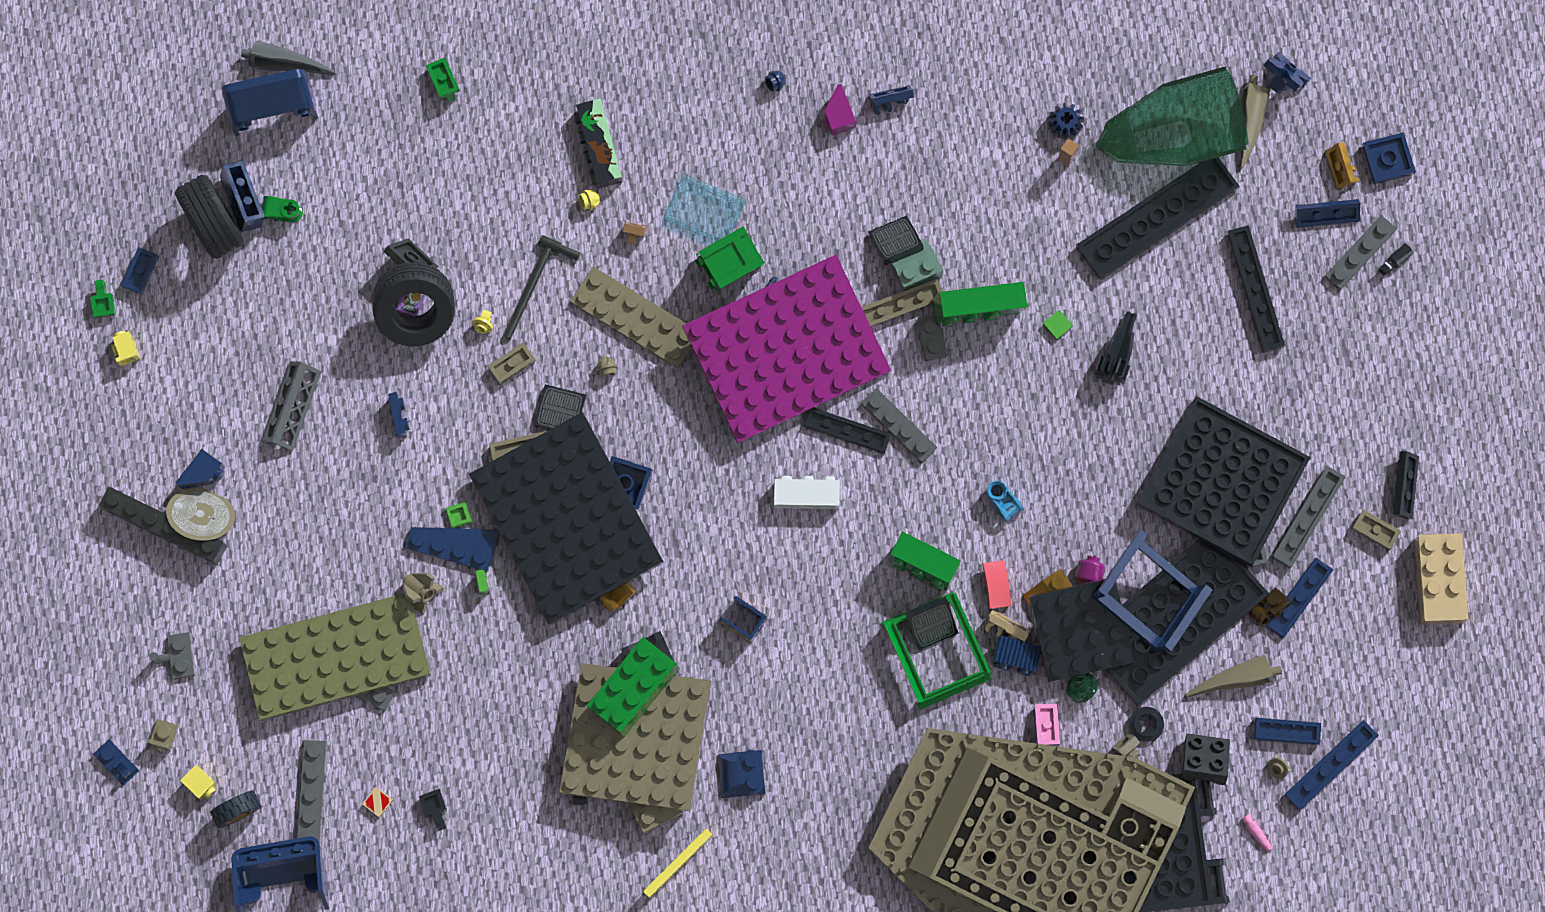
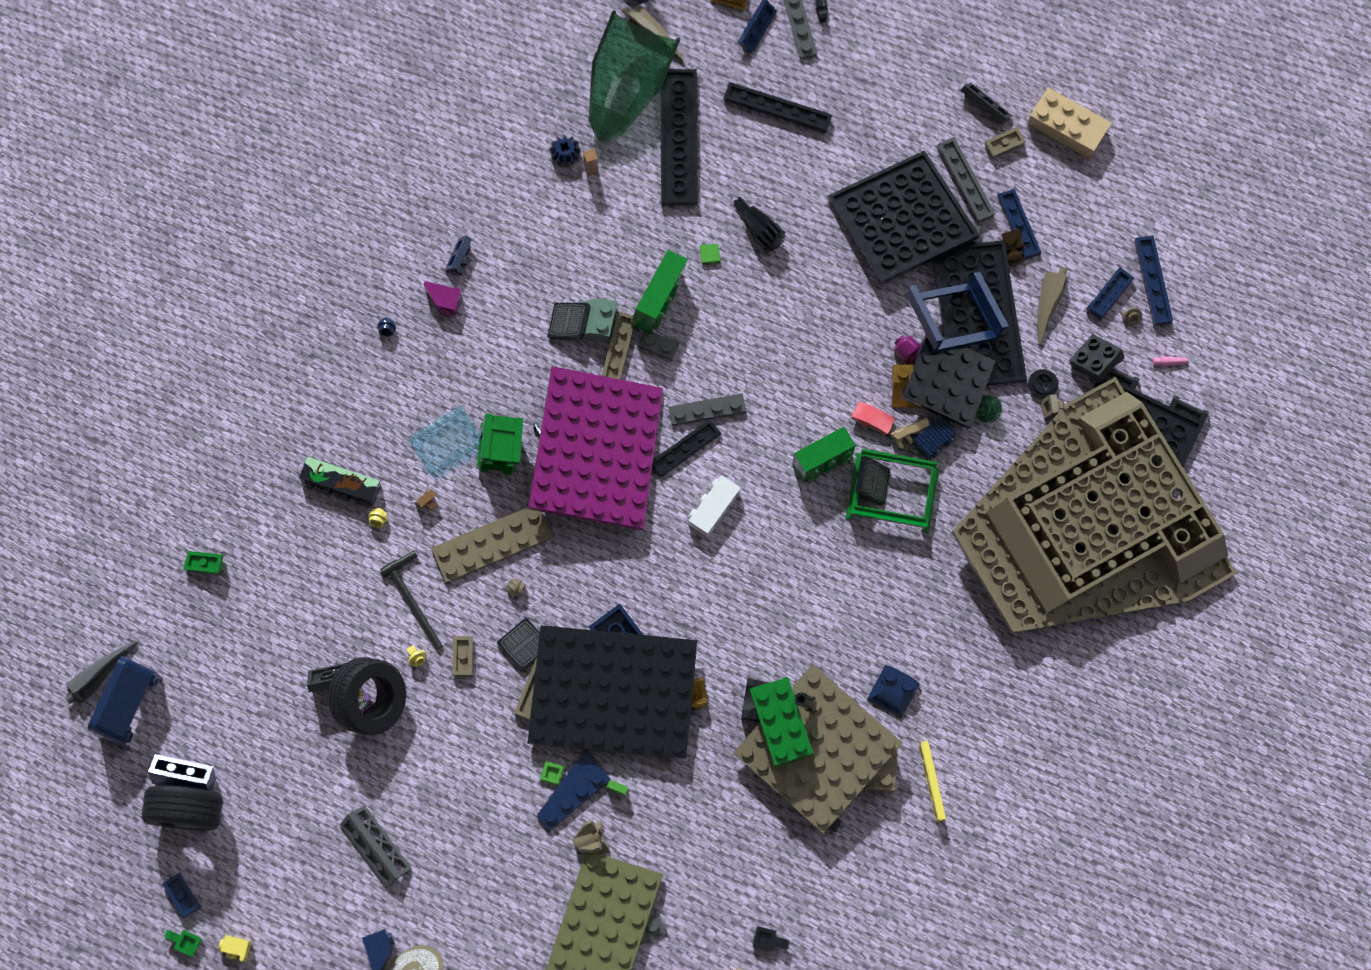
camera: 60 degrees left, 5 degrees down
(278, 209) = (212, 754): green piece -> none
(397, 405) = (434, 763): dark blue plate -> none
(664, 694) = (805, 701): none -> black bar
(763, 618) = (778, 601): dark blue piece -> none
(1004, 501) = (817, 372): dark azure piece -> none
(1047, 724) = (1000, 450): bright pink plate -> none

